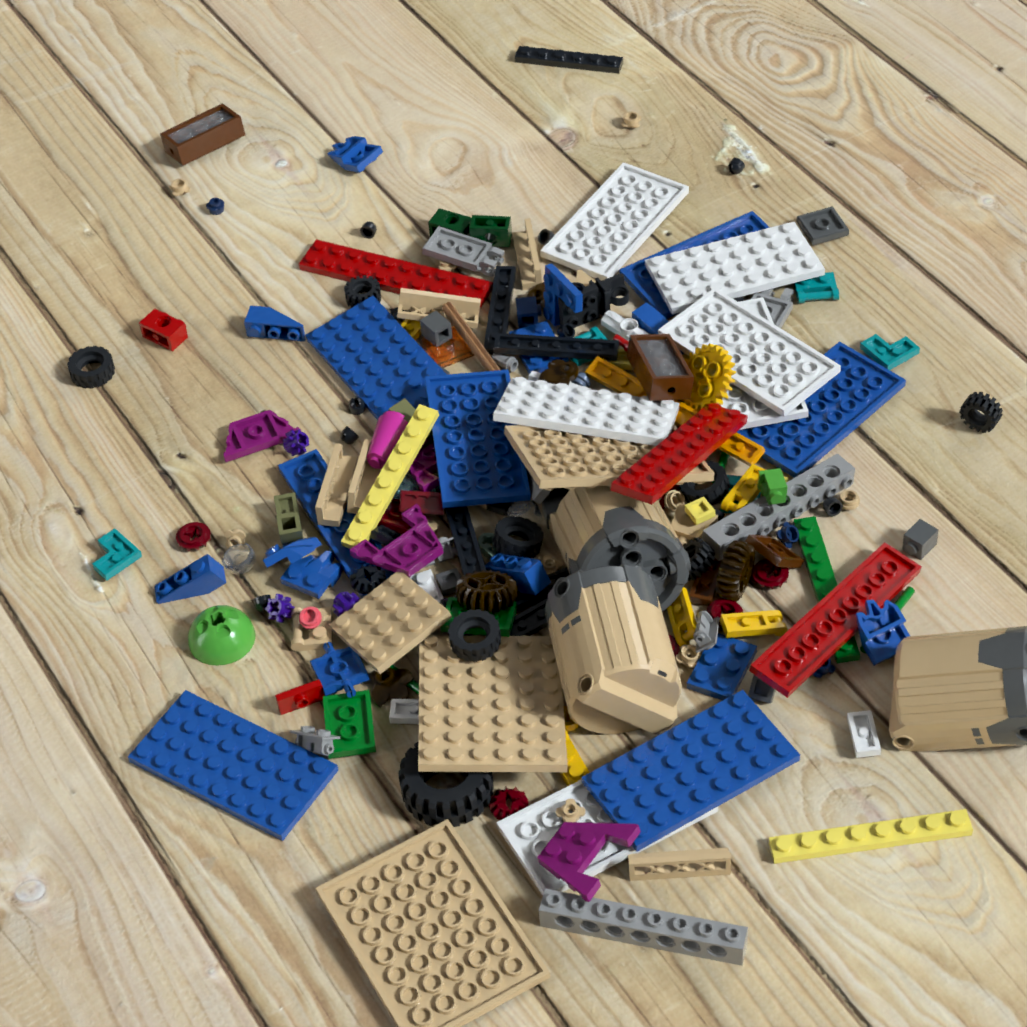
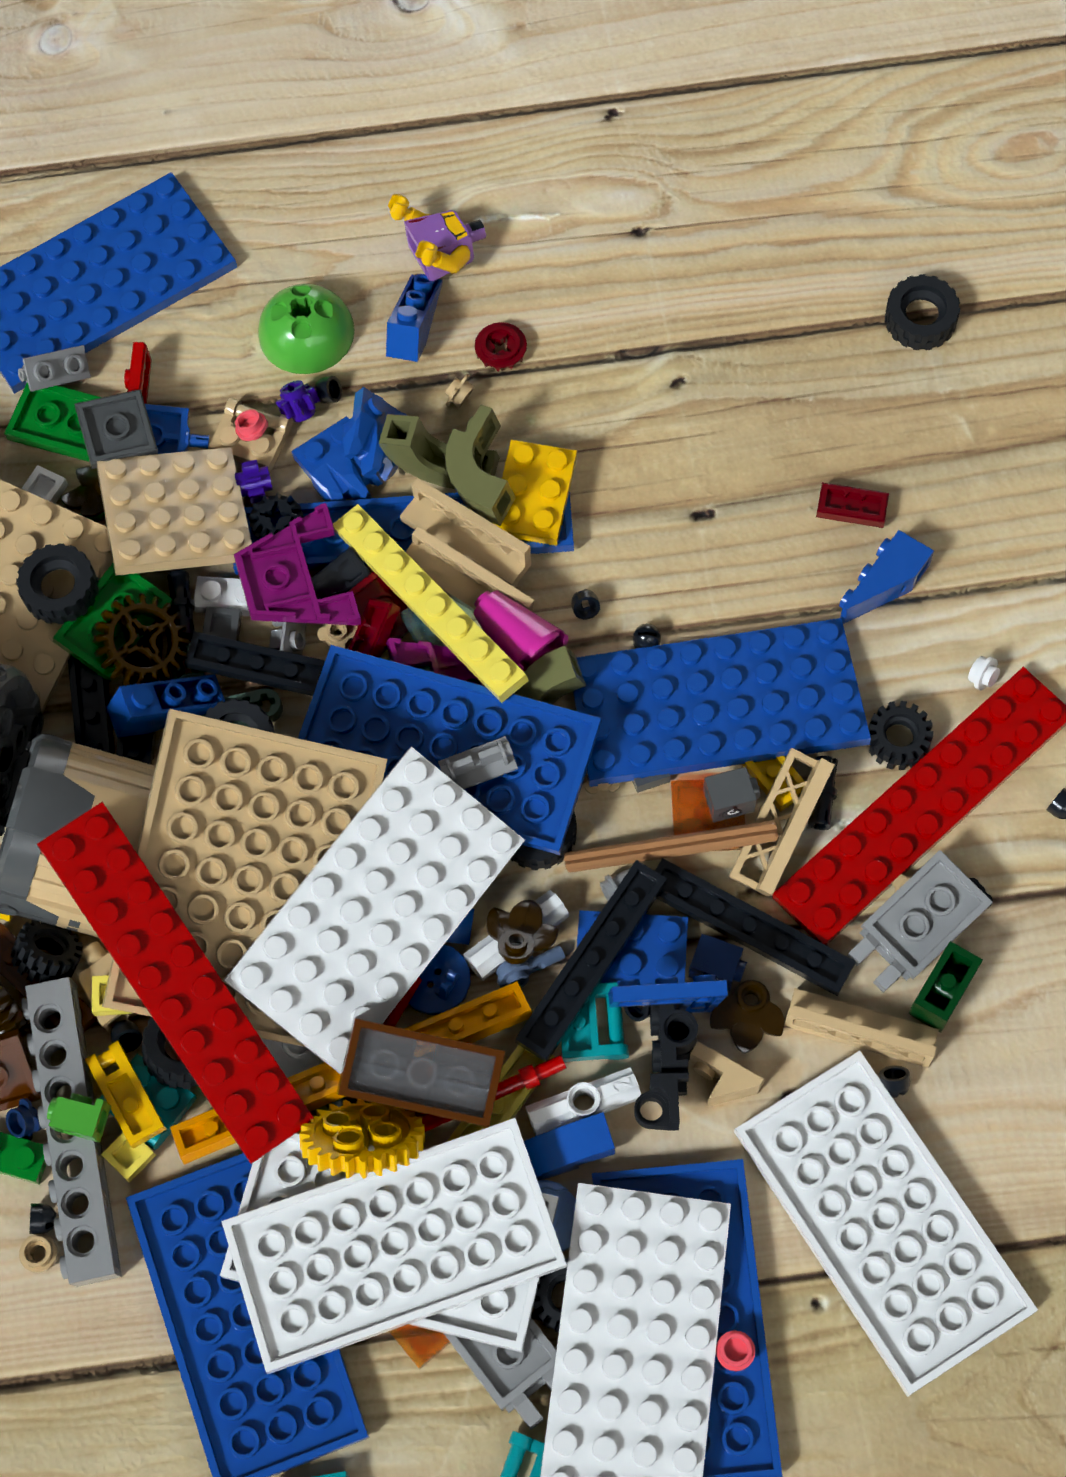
camera: 115 degrees right, 20 degrees up
(119, 554) = (518, 253): teal plate -> none
(132, 584) = (437, 240): none -> torso
(163, 329) = (964, 411): red brick -> none
(232, 353) = (852, 505): none -> dark red plate
(239, 559) = (416, 382): clear hair -> none
(255, 434) = (655, 484): magenta wing -> none
(291, 473) = (541, 485): none -> yellow plate
(295, 442) = (602, 522): dark purple gear -> none
(296, 495) = (464, 456): none -> olive arch
(310, 275) = (984, 672): none -> white plate
(348, 672) = (116, 427): none -> dark grey plate
(451, 221) = (1009, 916): dark green brick -> none
(478, 409) = (480, 763): none -> light grey hinge
(709, 235) = (735, 1350): none -> coral plate

